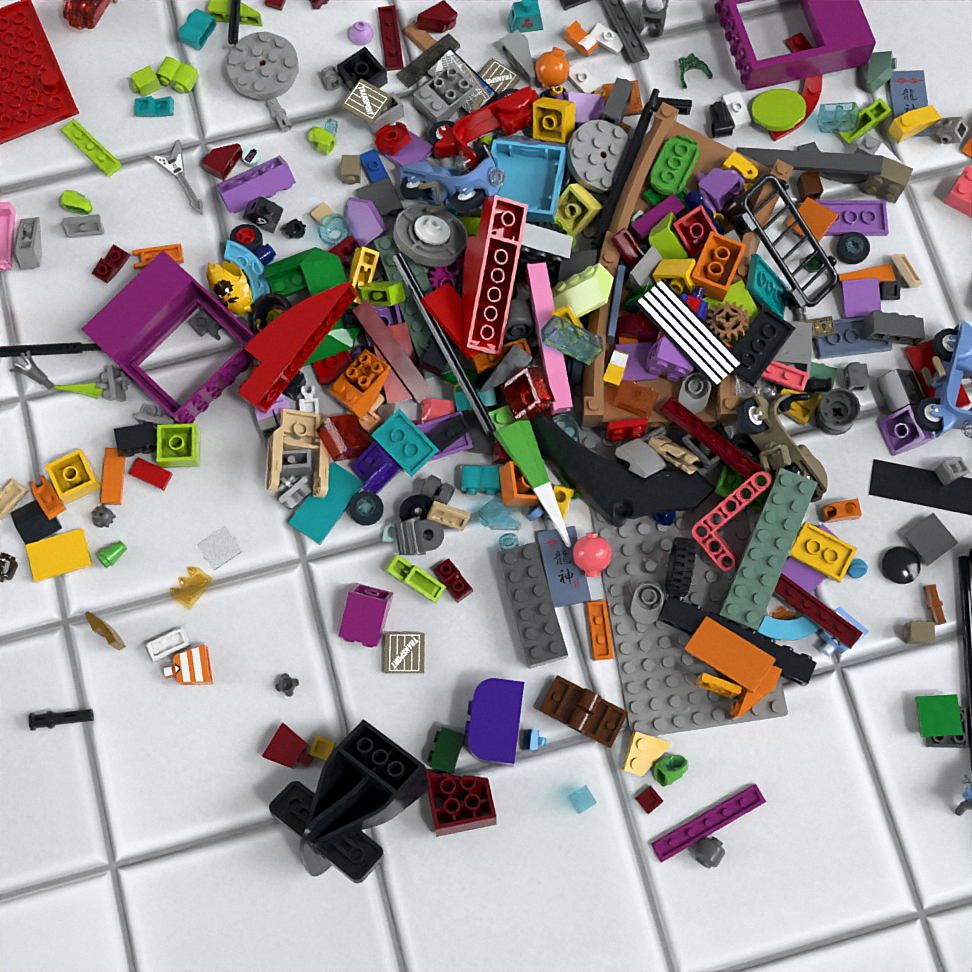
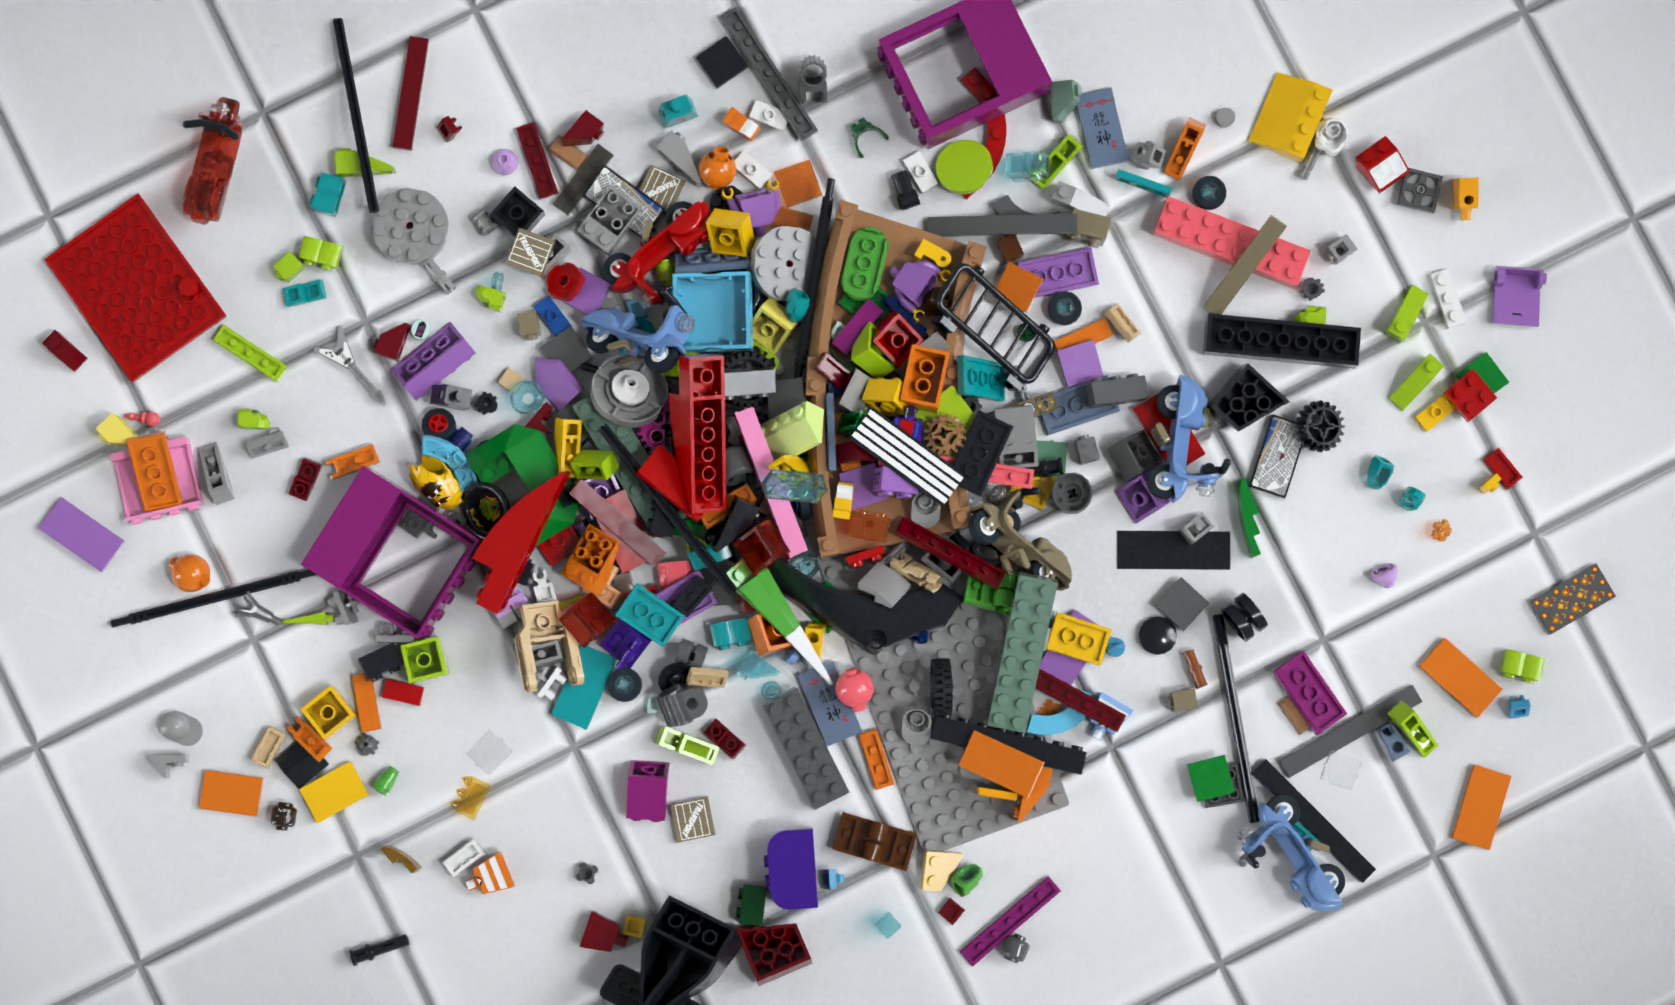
camera: 15 degrees left, 10 degrees up
(603, 190) = (797, 305): none -> teal rock
(618, 102) = (793, 202): dark grey window -> none
(683, 105) = (855, 183): black tile -> none
(726, 515) = (977, 624): coral beam -> none
(842, 511) = (1091, 593): orange leg -> none
(890, 290) = (1109, 347): black tile -> none
(913, 123) = (1109, 154): yellow slope -> none
(942, 154) = (1143, 183): none -> teal tile

